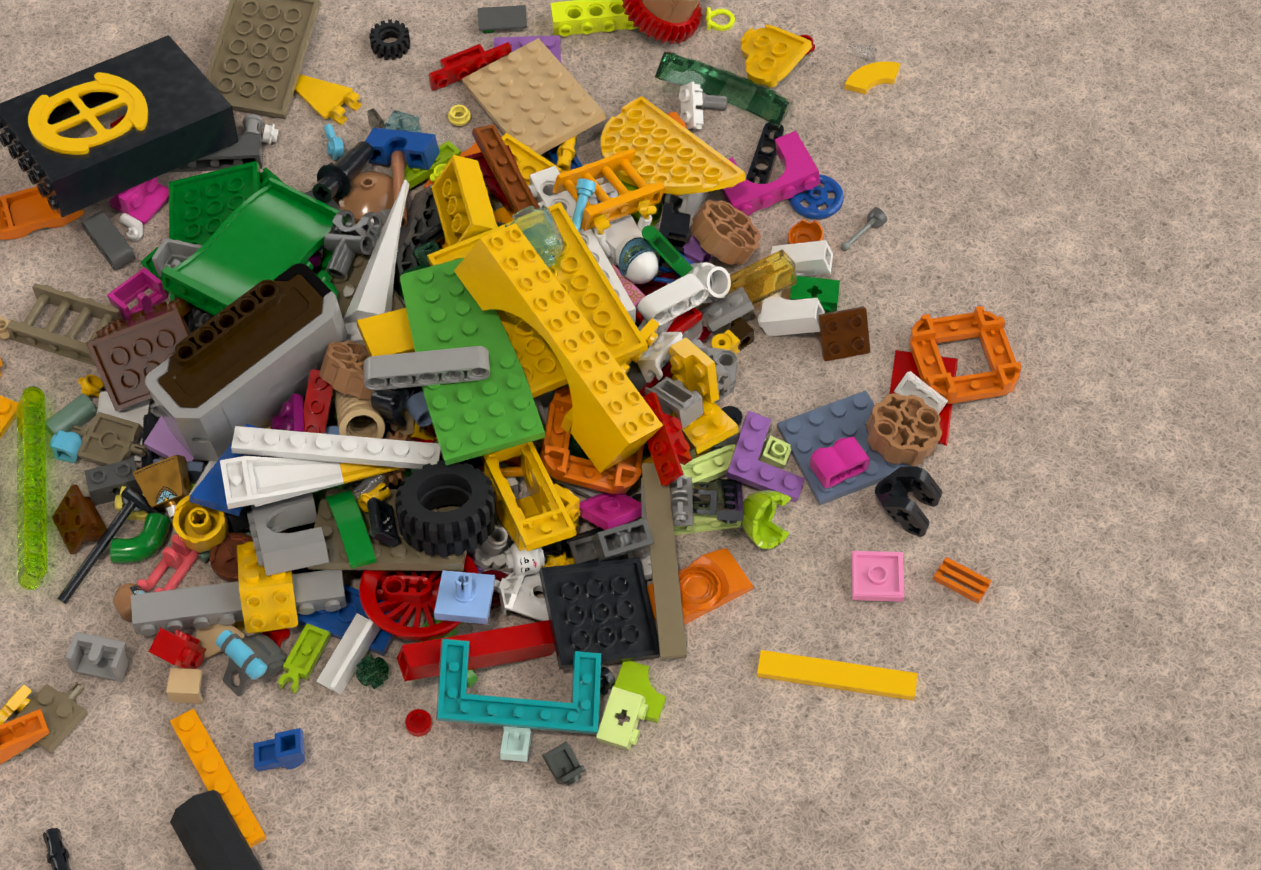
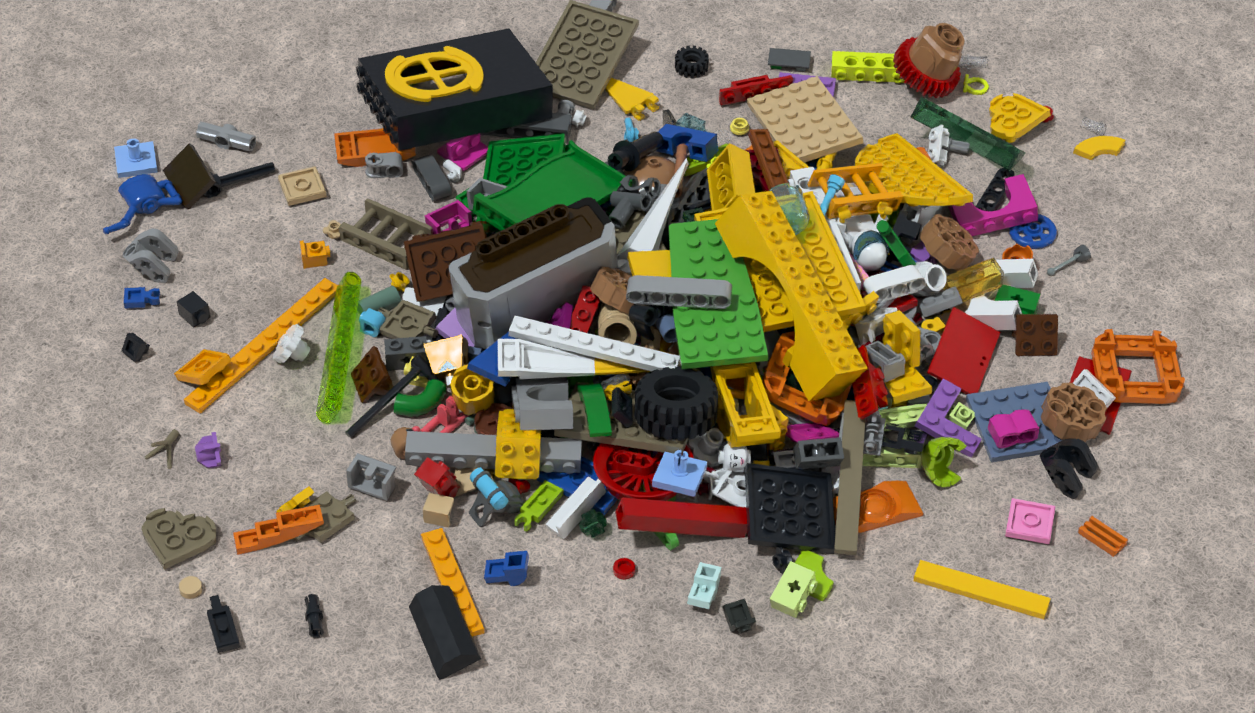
camera: 10 degrees right, 10 degrees down
(50, 232) = (385, 165): none -> light grey piece
(575, 717) = (754, 579): teal plate -> none
(762, 369) = (962, 351): none -> red container

